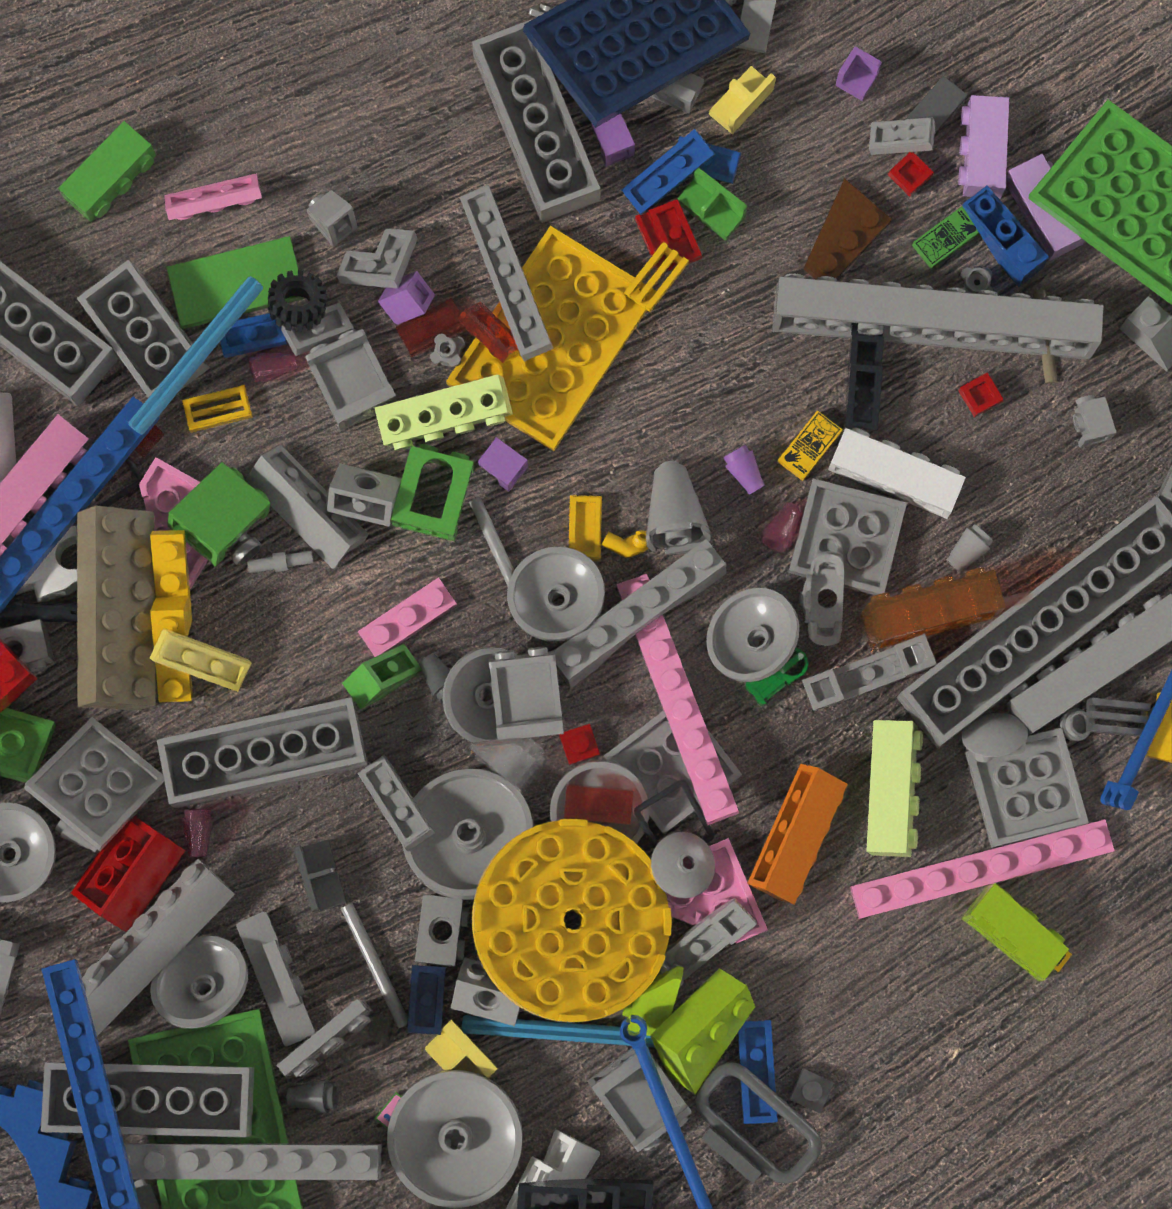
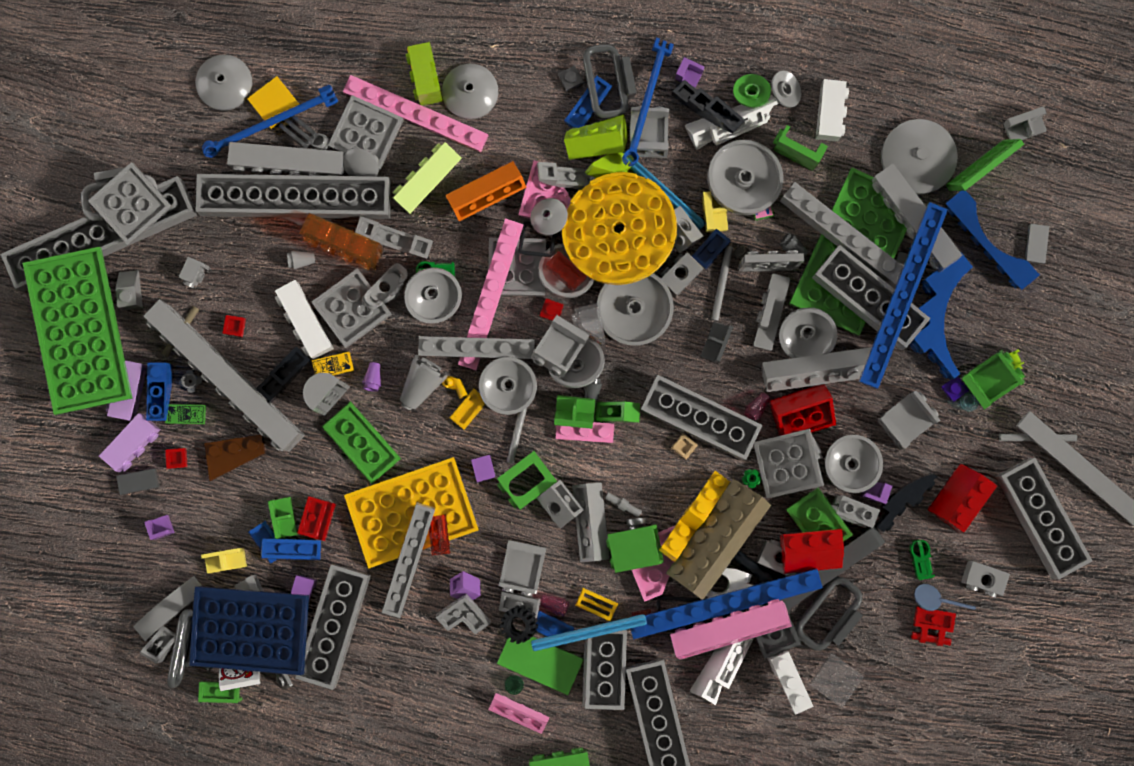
camera: 145 degrees left, 5 degrees up
(141, 733) = (751, 483): none -> green plate
(200, 660) = (697, 483): light yellow tile -> none
(247, 228) = (514, 684): none -> clear green plate
(257, 701) = (684, 446): none -> tan tile
(332, 217) = (469, 656): light grey slope -> none
(396, 803) = (656, 347): light grey tile -> none
(421, 331) = (461, 562): clear red plate -> none
(439, 629) = (574, 412): none -> bright green panel
(444, 411) = (490, 514): yellowish green brick -> none
(452, 358) = (460, 545): light grey plate -> none
(672, 255) = (322, 505): yellow tile -> none
(691, 377) = (361, 442): none -> bright green tile
(782, 528) = (377, 336): clear pink cone -> none
(788, 388) = (323, 392): none -> light grey brick
(902, 136) = (165, 479): light grey plate -> none
(911, 966) = (474, 102): none -> light grey dish

